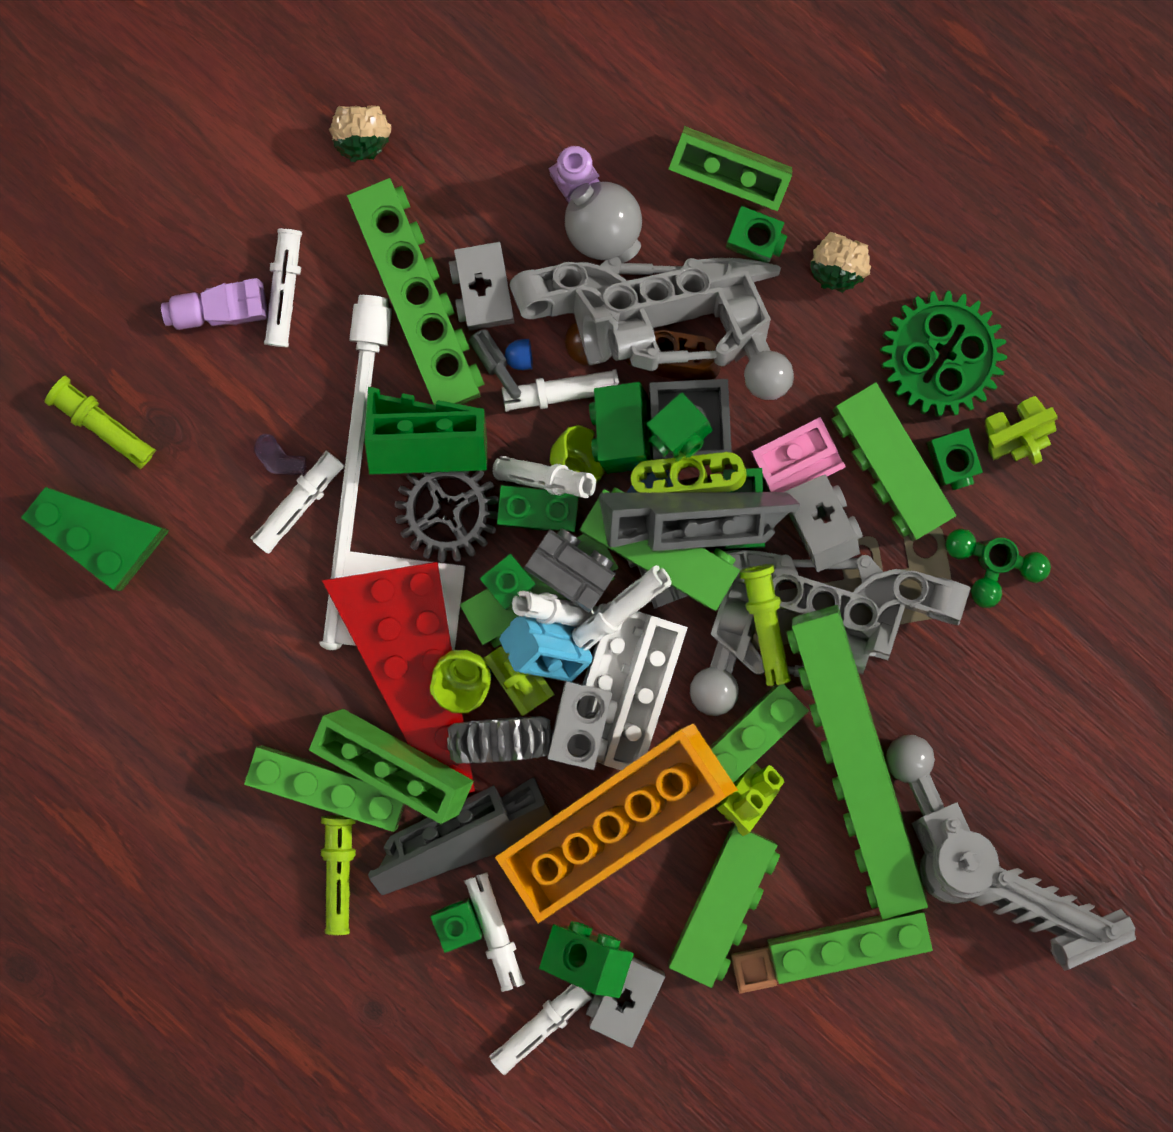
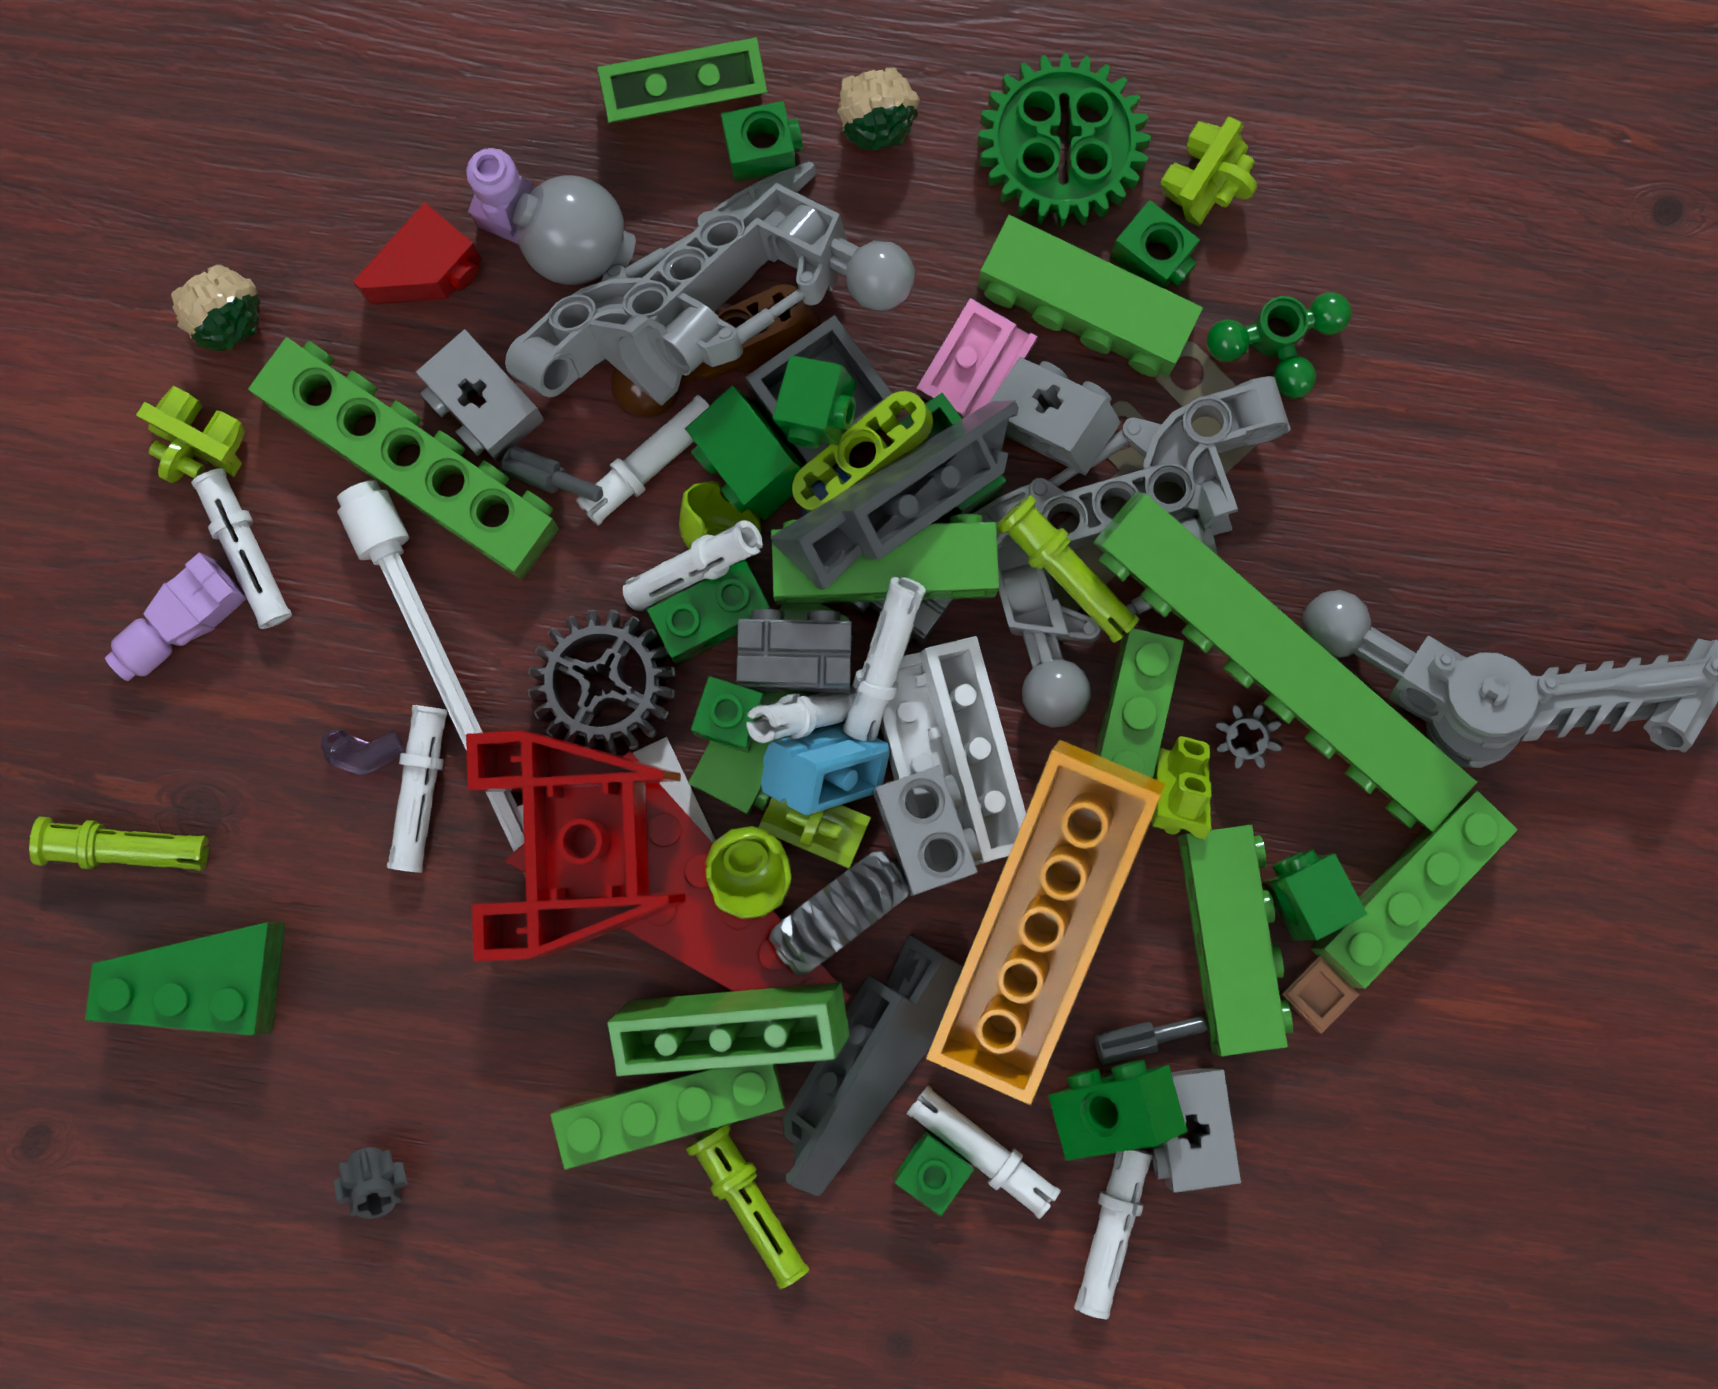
camera: 35 degrees left, 5 degrees down
(126, 717) = (370, 1182): none -> dark grey gear
(306, 214) = (172, 423): none -> lime hips
(374, 599) = (579, 843): none -> red wedge
(423, 436) = (517, 611): green wedge -> none
(501, 179) = (420, 262): none -> red slope
(519, 354) = (572, 449): blue hinge -> none
(632, 928) = (1143, 1038): none -> dark grey axle
(785, 910) = (1313, 895): none -> green brick
(805, 798) = (1245, 749): none -> dark grey gear

